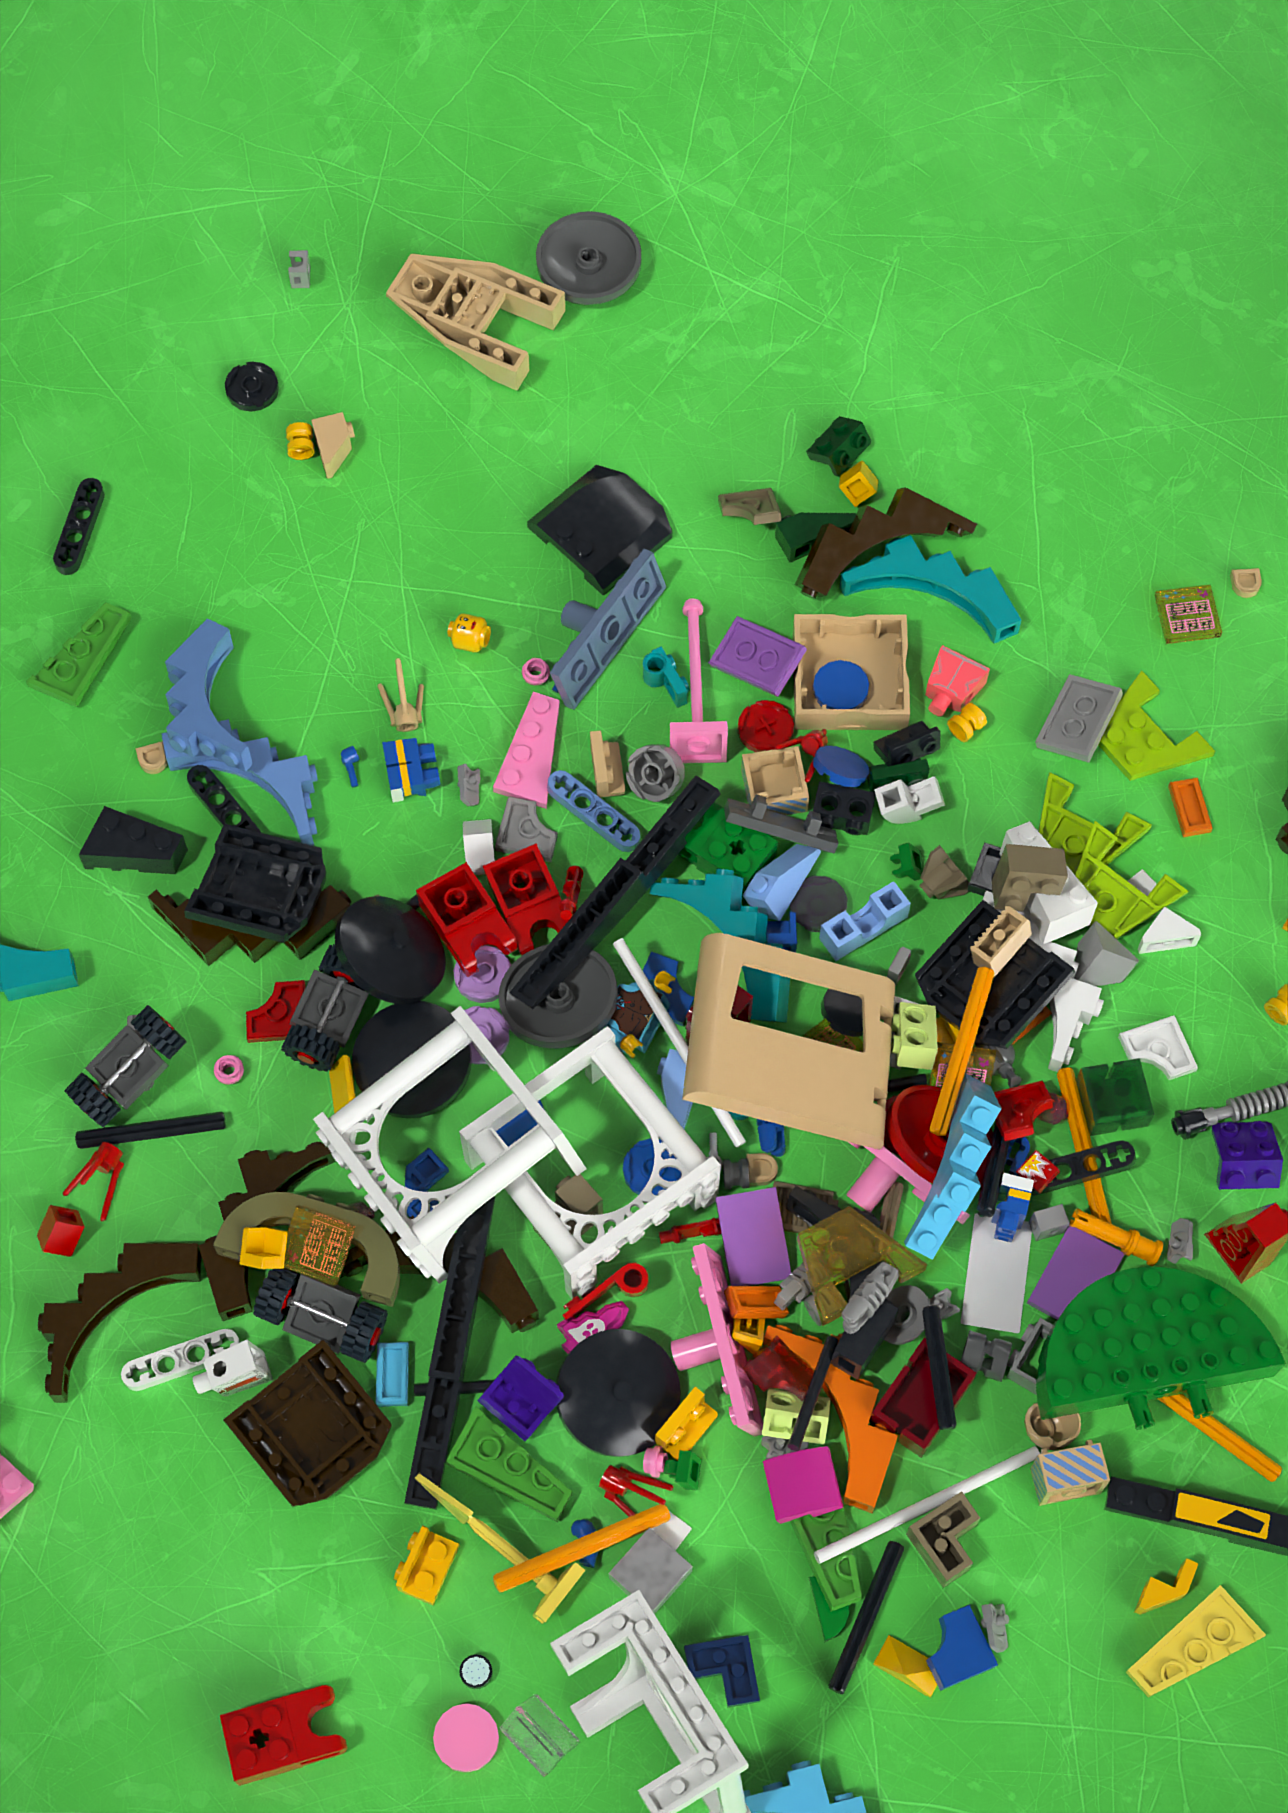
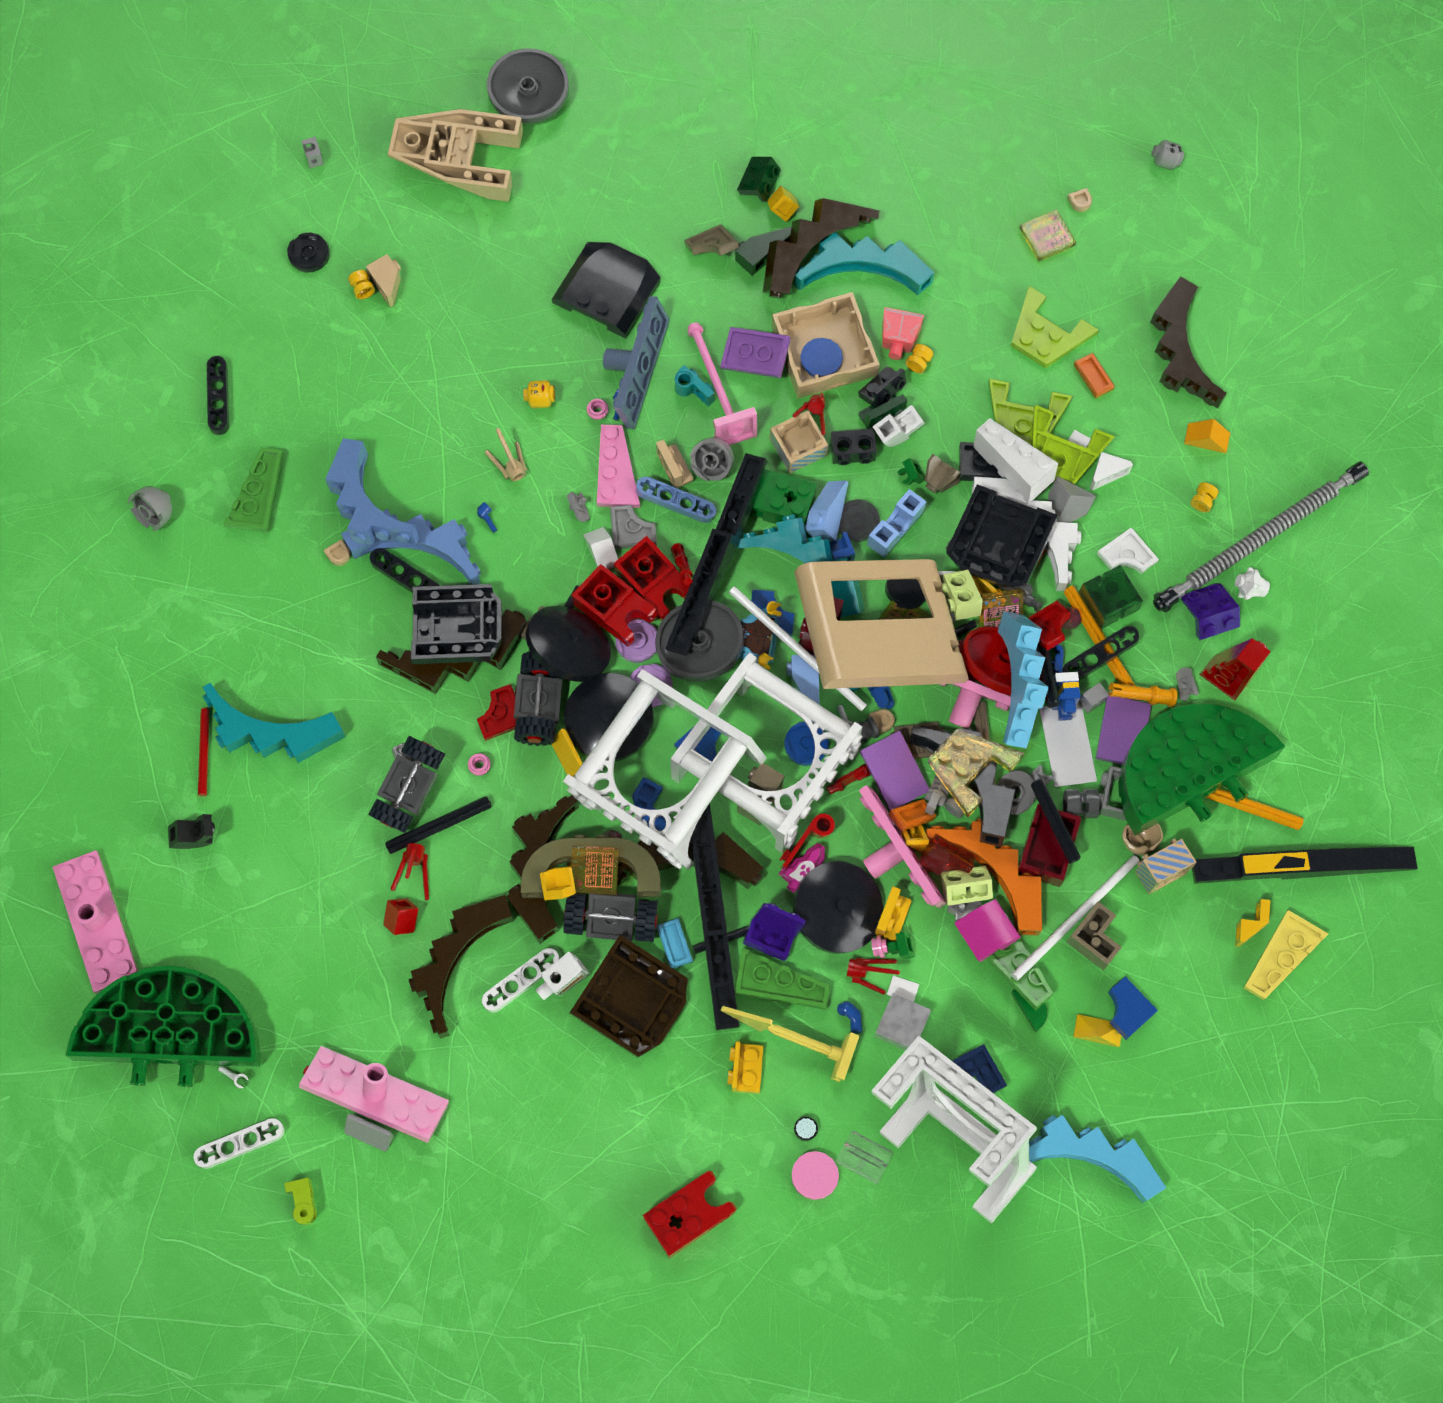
camera: 20 degrees left, 5 degrees up
(131, 843) = (349, 621): black wedge -> none
(404, 768) = (528, 507): blue hips -> none
(581, 1548) = (851, 1021): light orange axle -> none
(765, 726) = (776, 402): red tile -> none
(779, 825) = (801, 471): dark grey hinge -> none
(812, 1393) = (975, 866): black bar -> none
(841, 765) = (842, 415): blue tile -> none
(866, 1617) = (1058, 1007): black axle -> none
(869, 1297) = (993, 787): light grey hinge -> none
(899, 964) = (930, 546): light grey tile -> none
(962, 1051) = (999, 596): light orange axle -> none
(994, 1620) = (1146, 981): light grey piece -> none
(1001, 940) = (1000, 510): tan brick -> none
(1027, 871) = (1003, 455): dark tan brick -> none
(1038, 1169) = (1075, 663): tile -> none
(1079, 718) = (997, 333): light grey plate -> none

